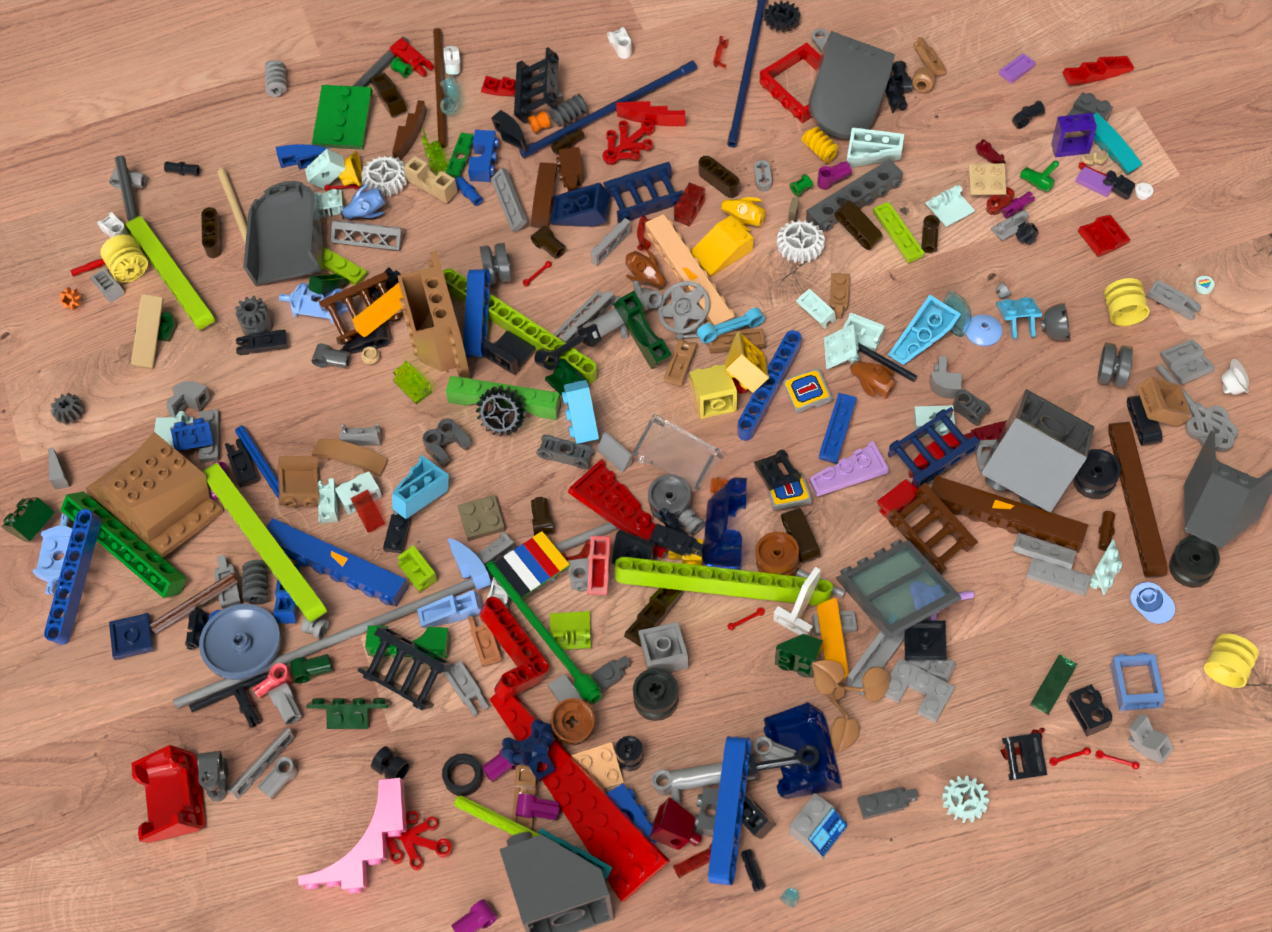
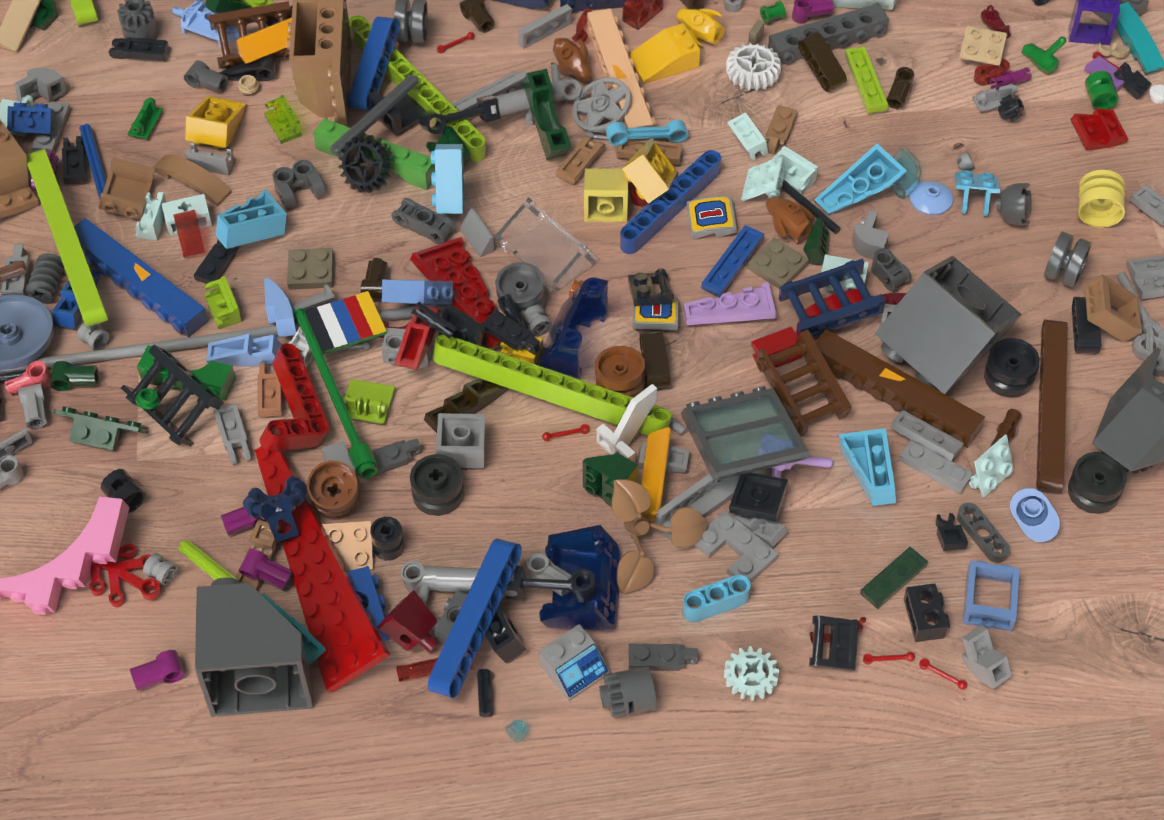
camera: 10 degrees right, 5 degrees down
(290, 410) = (145, 119): none -> green hinge
(353, 397) = (214, 121): none -> yellow slope
(385, 677) = (147, 399): none -> green plate
(446, 828) = (162, 570): none -> light grey wheel
(454, 761) = (196, 504): black tyre -> none
(495, 363) = (375, 113): none -> dark grey axle
(585, 522) = (417, 290): none -> medium blue window
(611, 548) = (434, 320): none -> black pin
(872, 841) = (628, 692): none -> dark grey gear
(875, 421) = (777, 263): none -> dark tan plate
(903, 396) = (817, 243): none -> dark green slope
(921, 731) = (709, 607): none -> medium azure beam
(950, 206) = (932, 65): light aqua hinge -> none
(1008, 588) = (871, 463): none -> medium azure wedge
(1088, 636) = (950, 535): none -> black plate
(1097, 199) = (1101, 90): none -> green wheel
(1112, 618) = (983, 543): none -> dark grey beam
(1231, 660) = (1107, 595): light yellow wheel -> none

